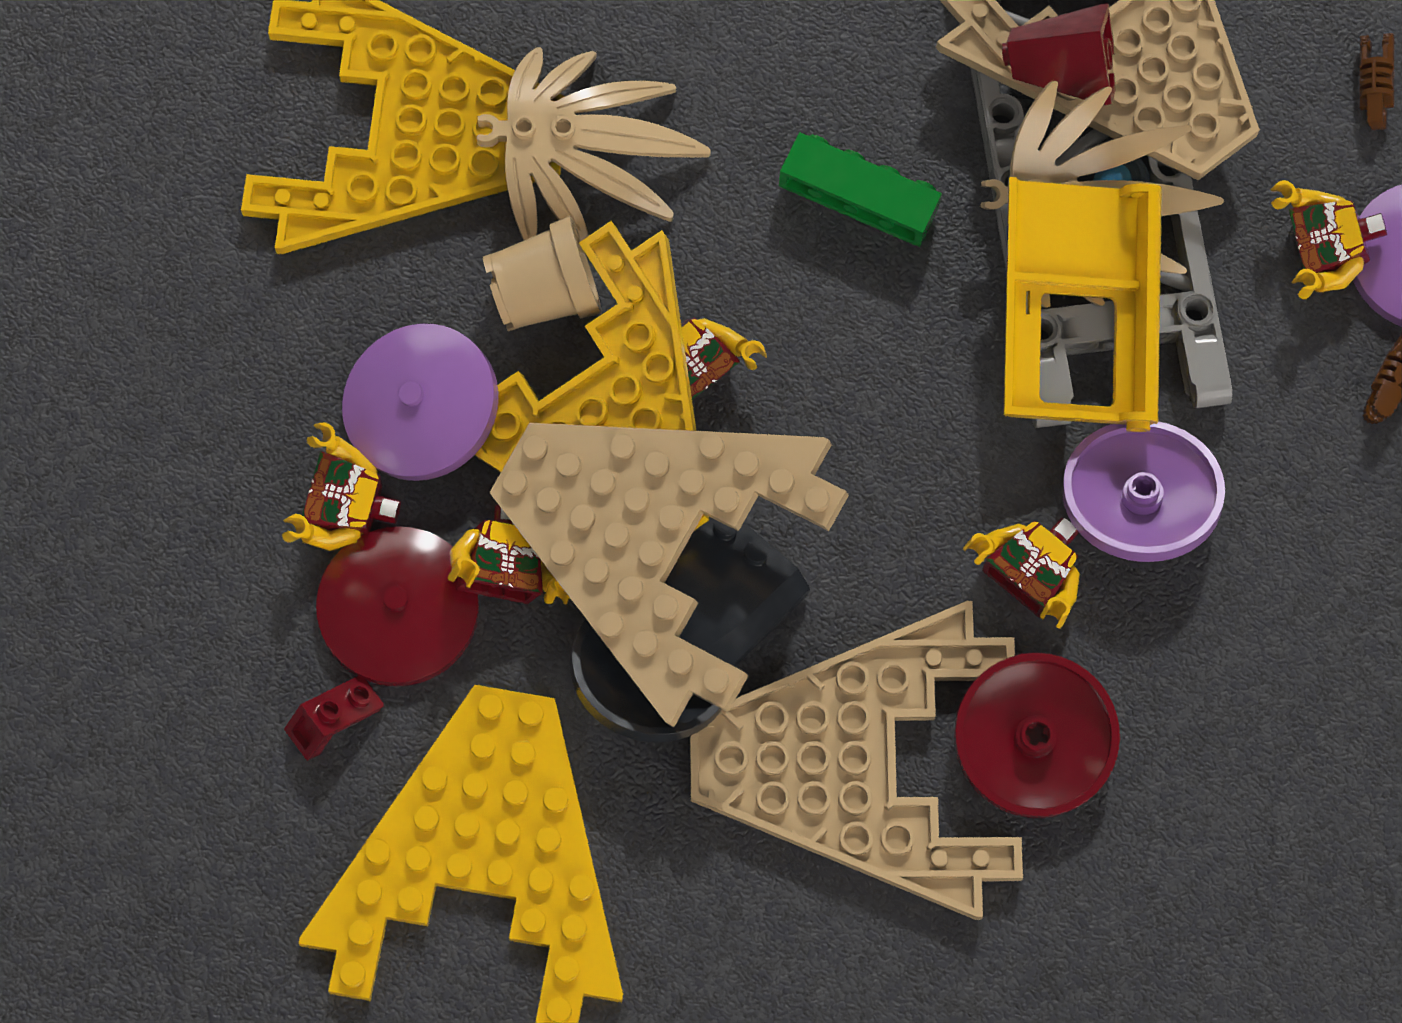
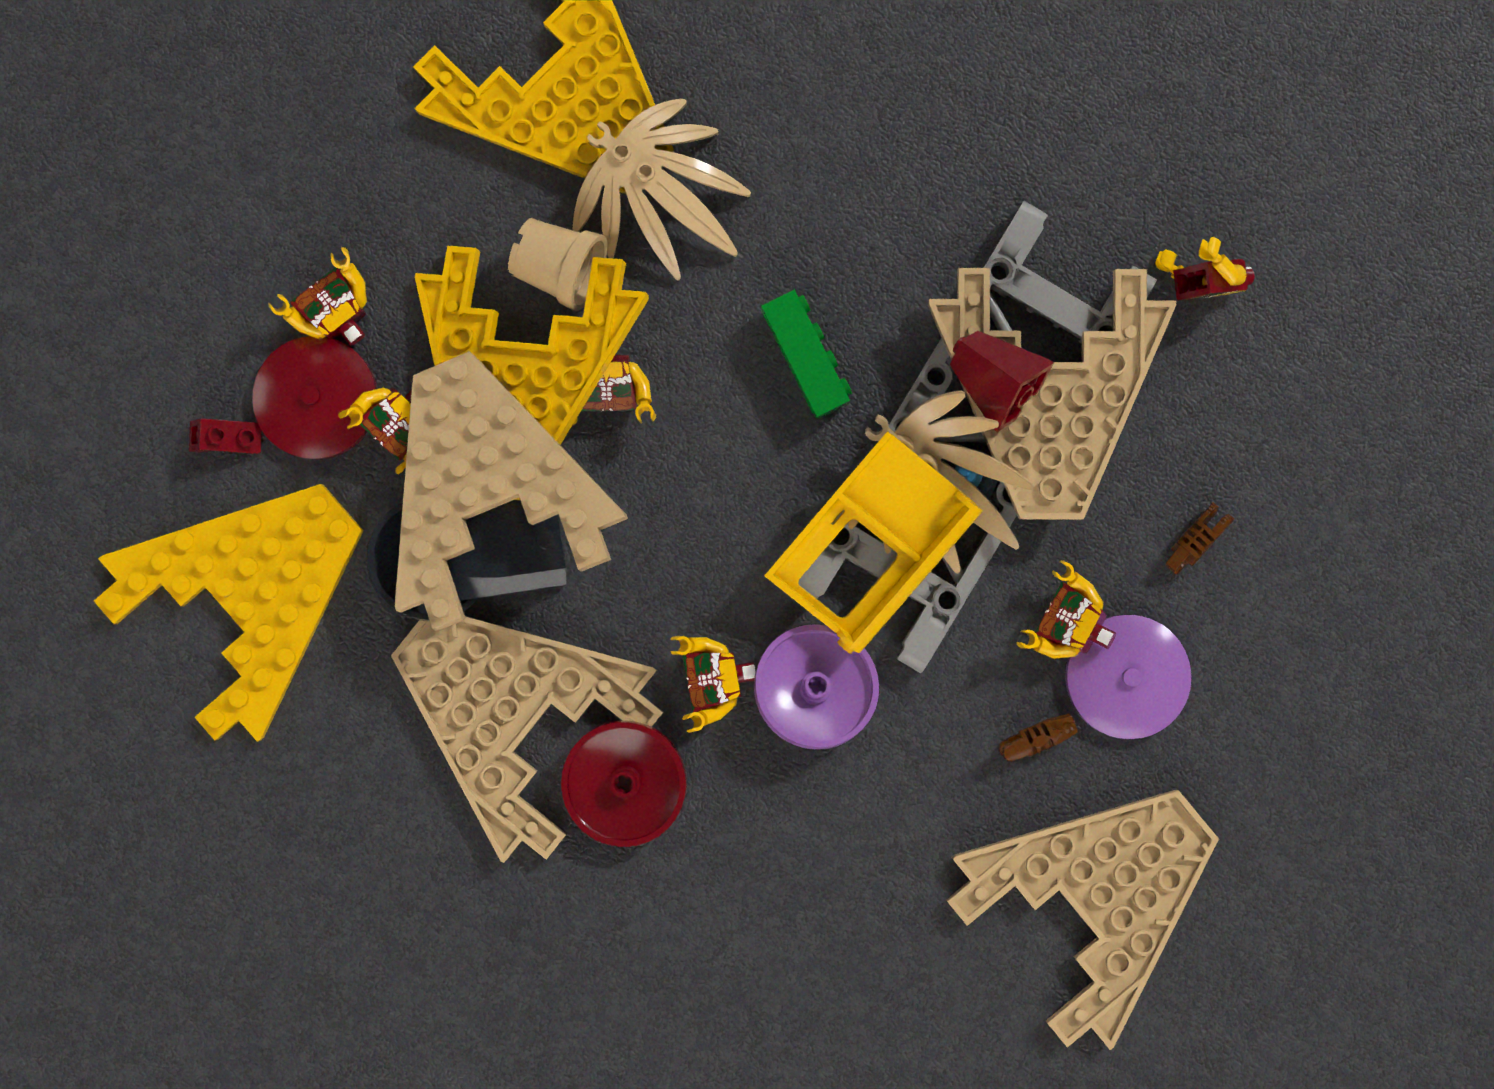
camera: 45 degrees right, 15 degrees up
(420, 402) = (424, 280): medium lavender dish -> none

